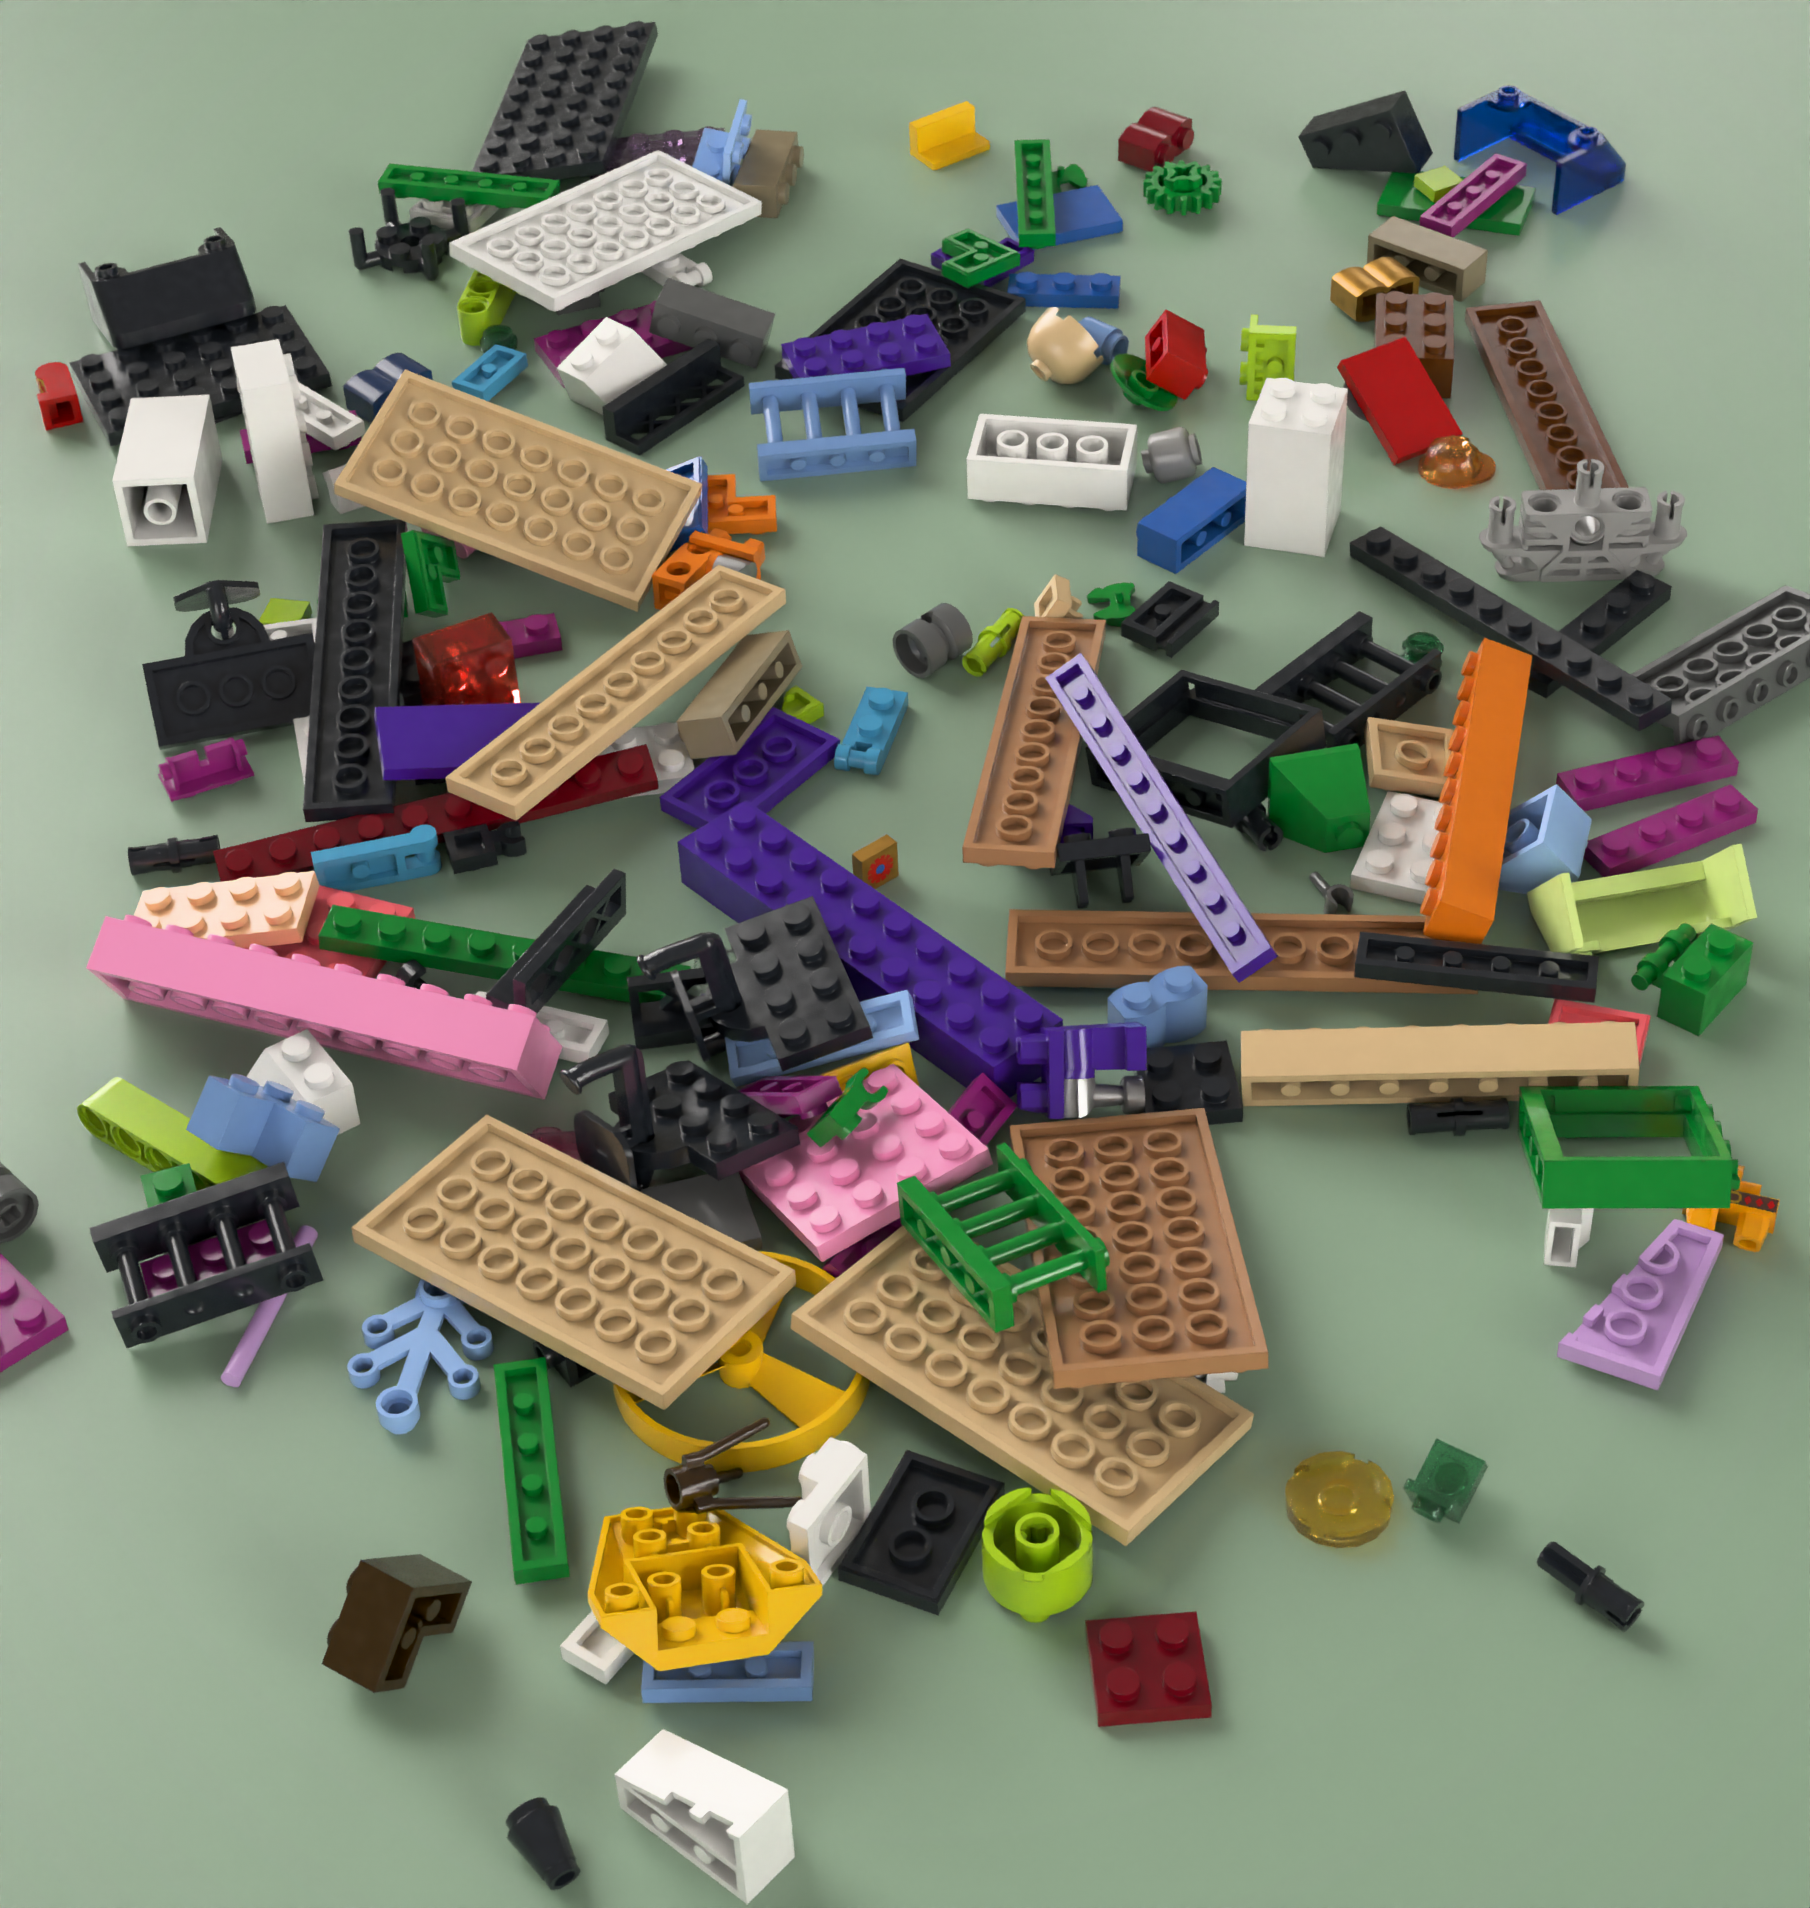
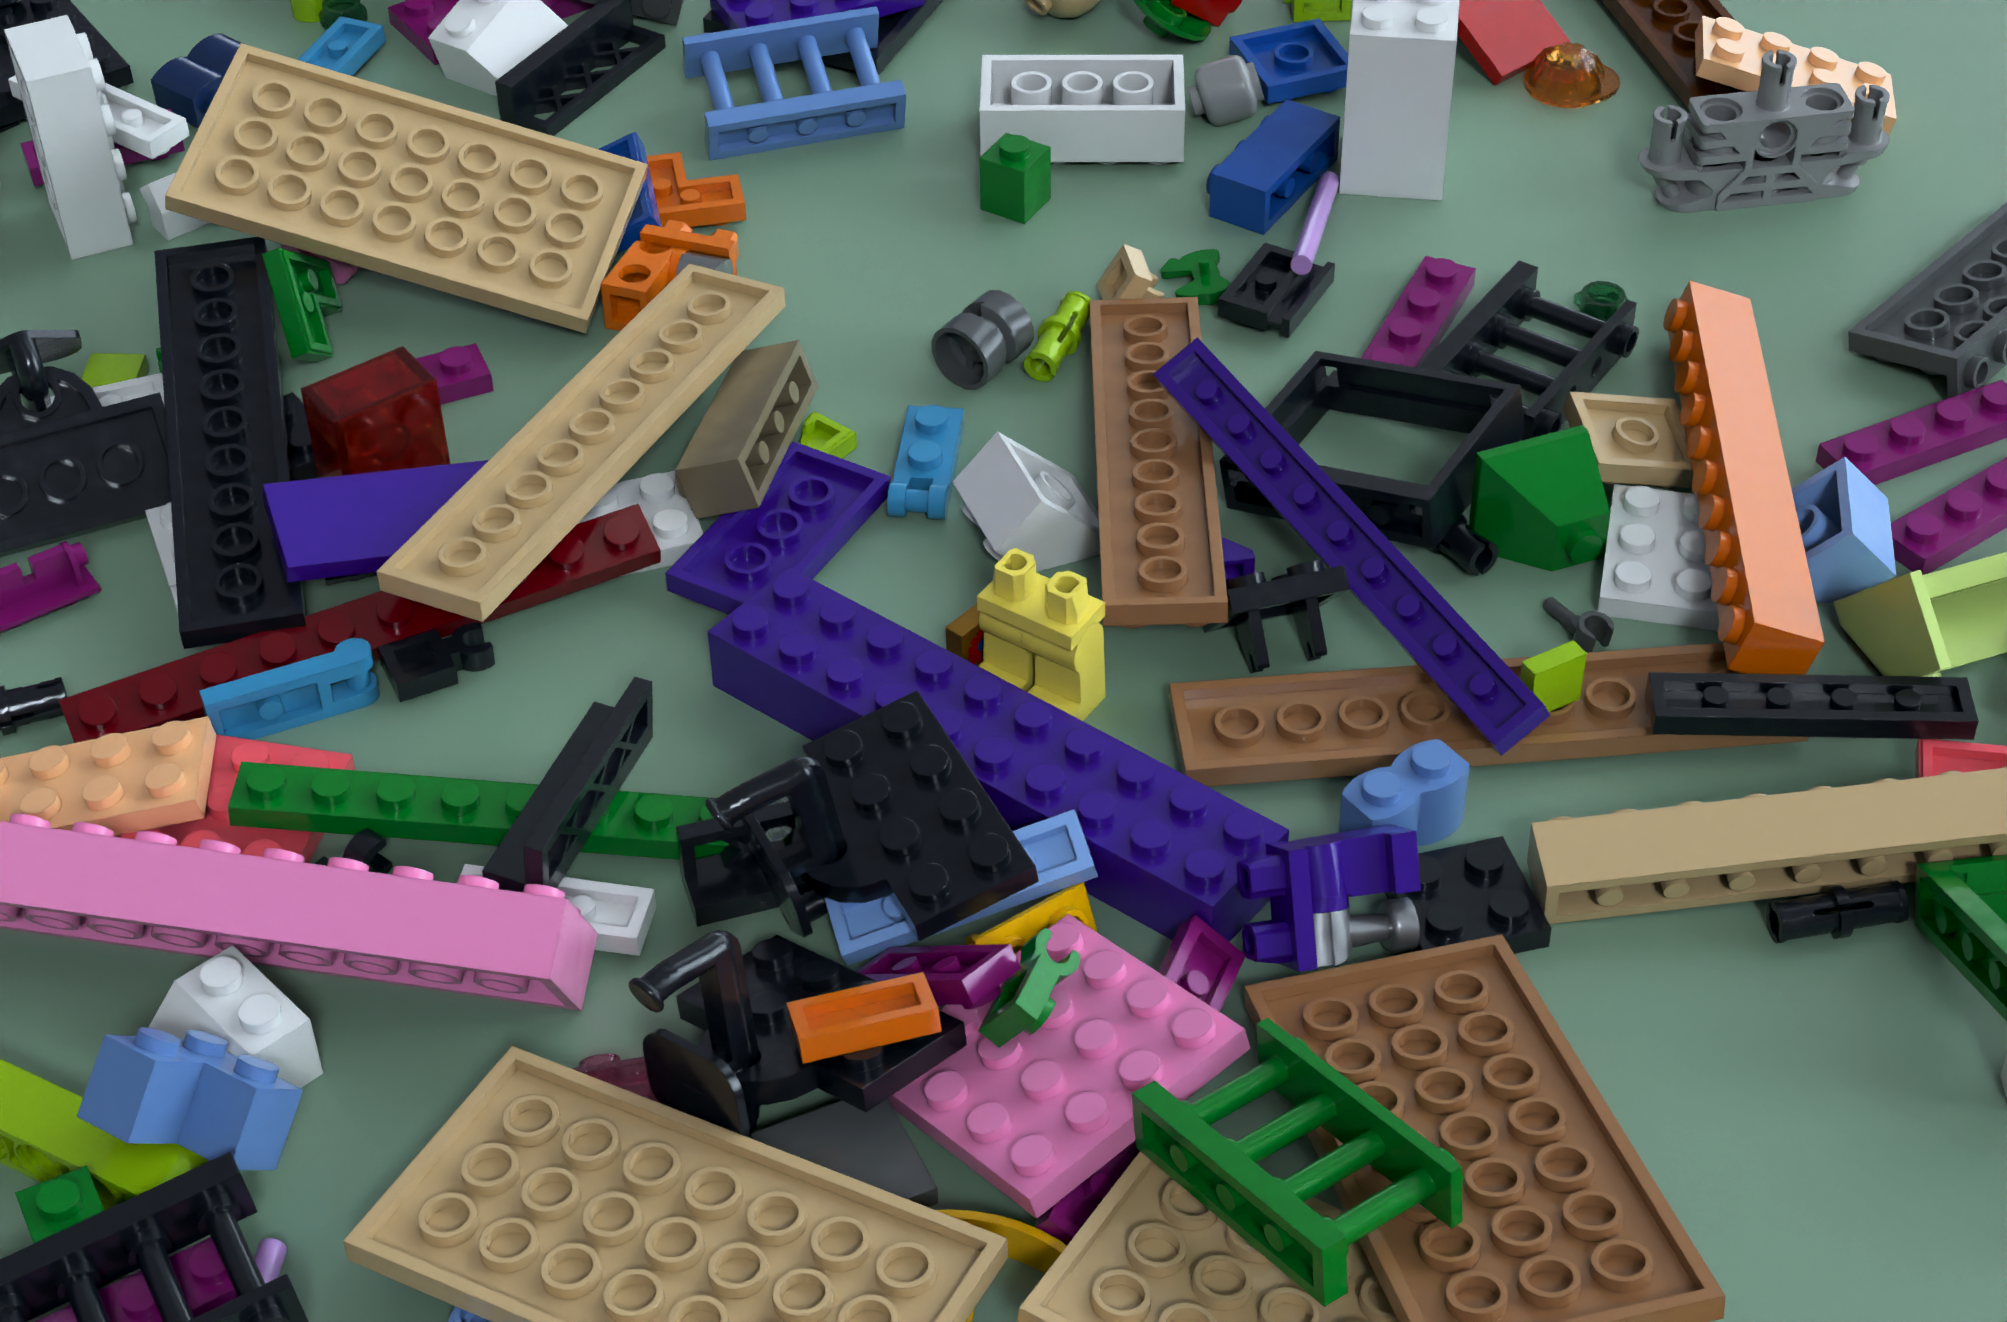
camera: 10 degrees left, 0 degrees up
(726, 1116) = (863, 1017): none -> orange tile
(920, 867) = (1044, 634): none -> light yellow hips
(934, 769) = (1028, 505): none -> white slope
(988, 514) = (1015, 178): none -> green brick
(1212, 568) = (1315, 223): none -> lavender bar
(1221, 432) = (1294, 59): none -> blue plate
(1279, 645) = (1422, 312): none -> magenta plate
(1288, 929) = (1556, 675): none -> lime tile
(1508, 625) = (1682, 256): black plate -> none
(1609, 620) = (1808, 260): black plate -> none
(1630, 468) = (1735, 54): none -> light nougat plate

